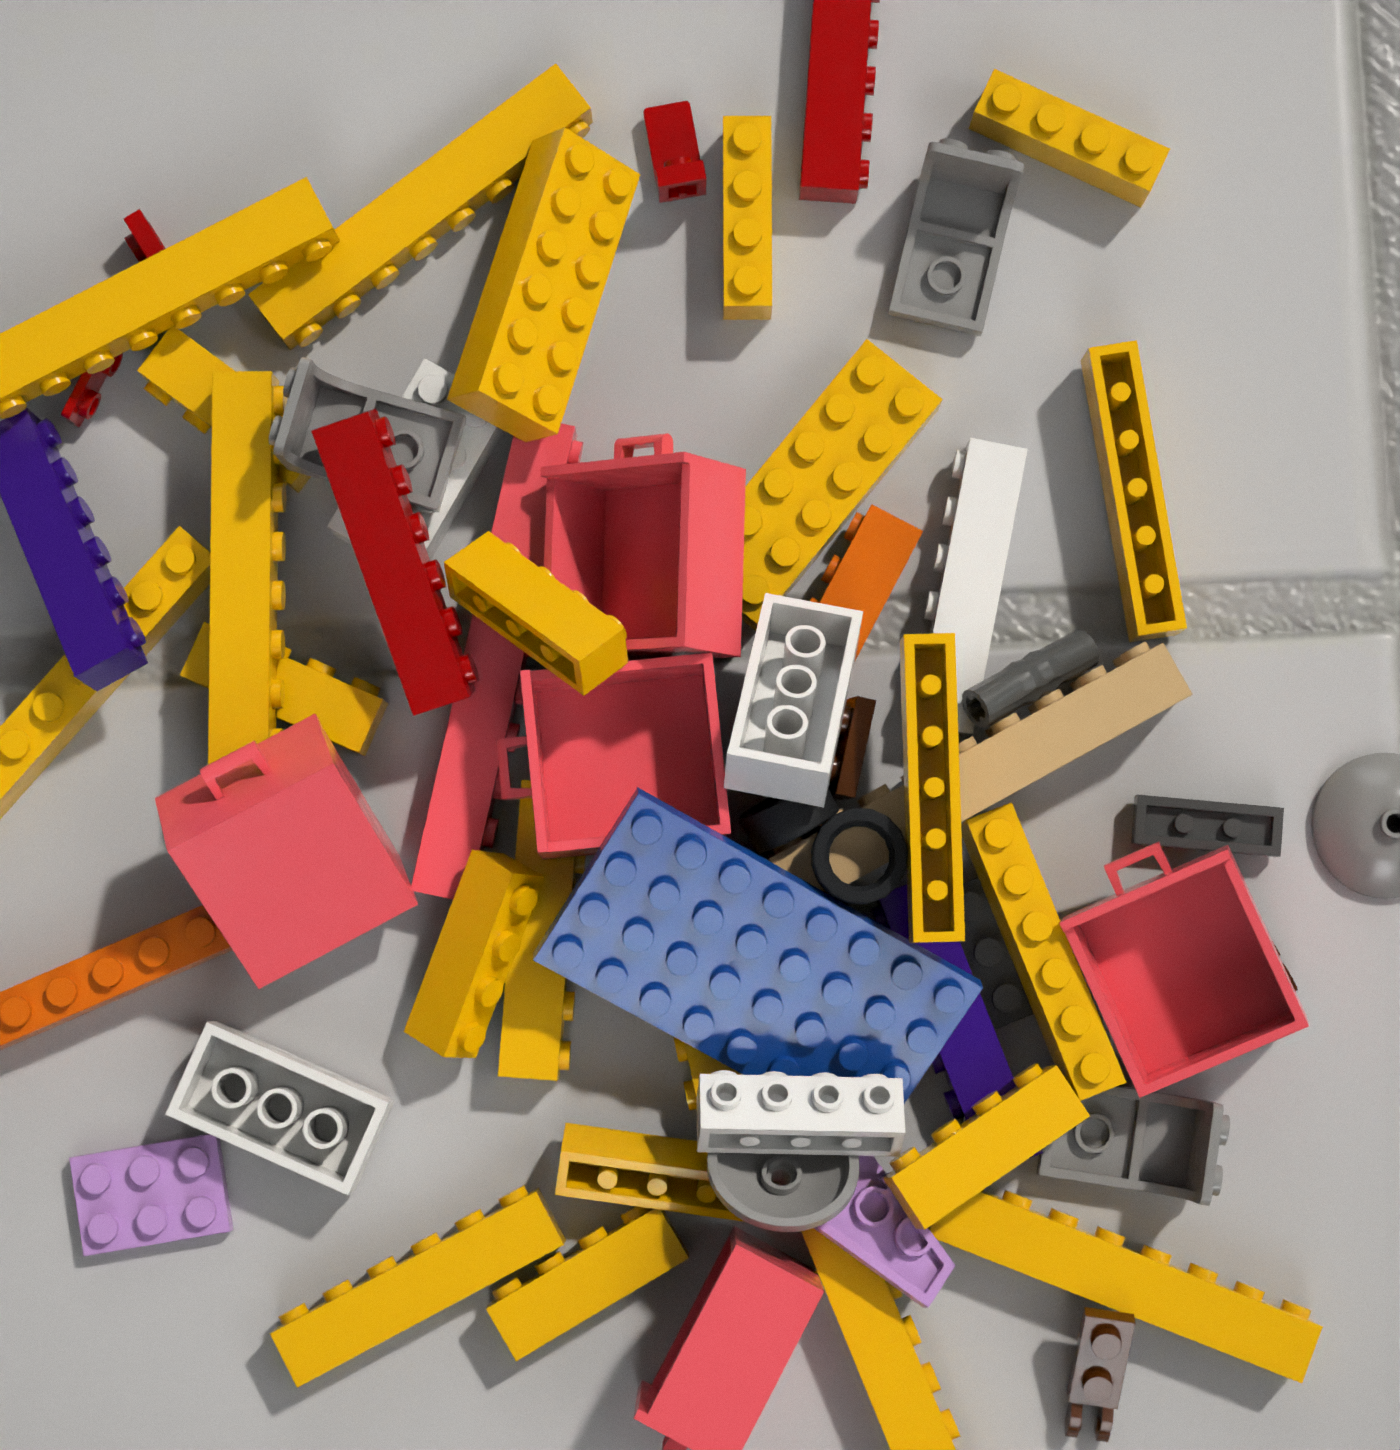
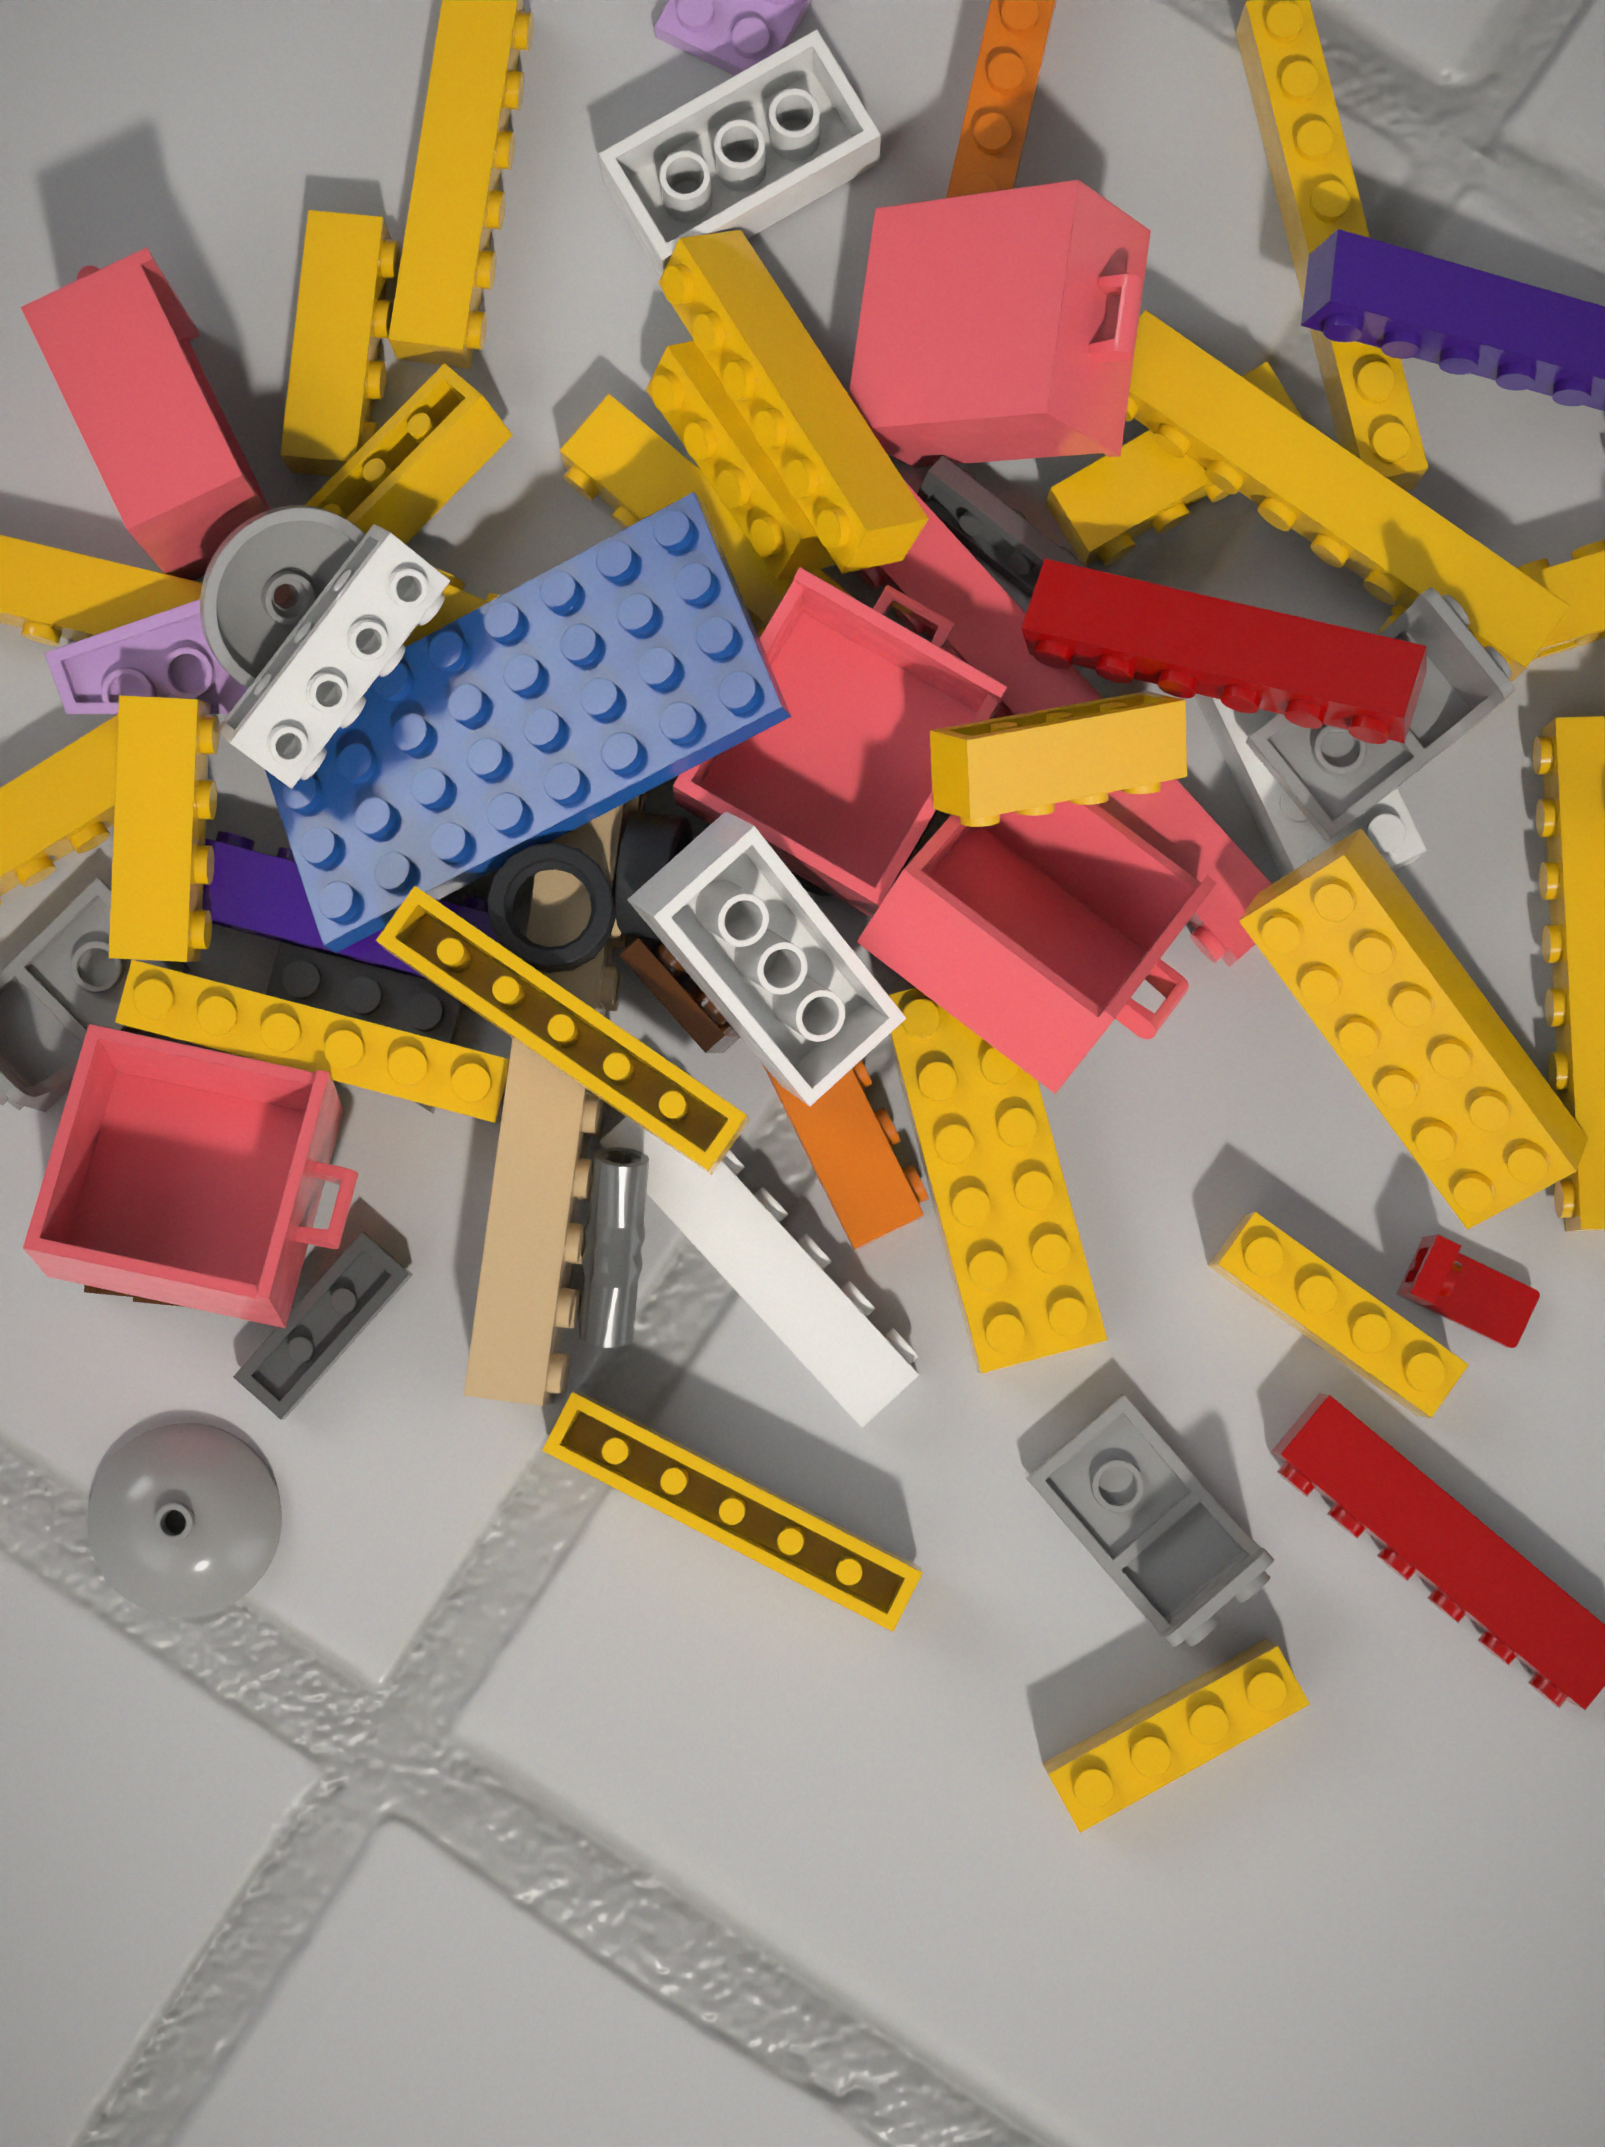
camera: 130 degrees right, 0 degrees up
(407, 769) = (989, 526): none -> dark grey plate
(423, 950) = (792, 401): none -> yellow brick

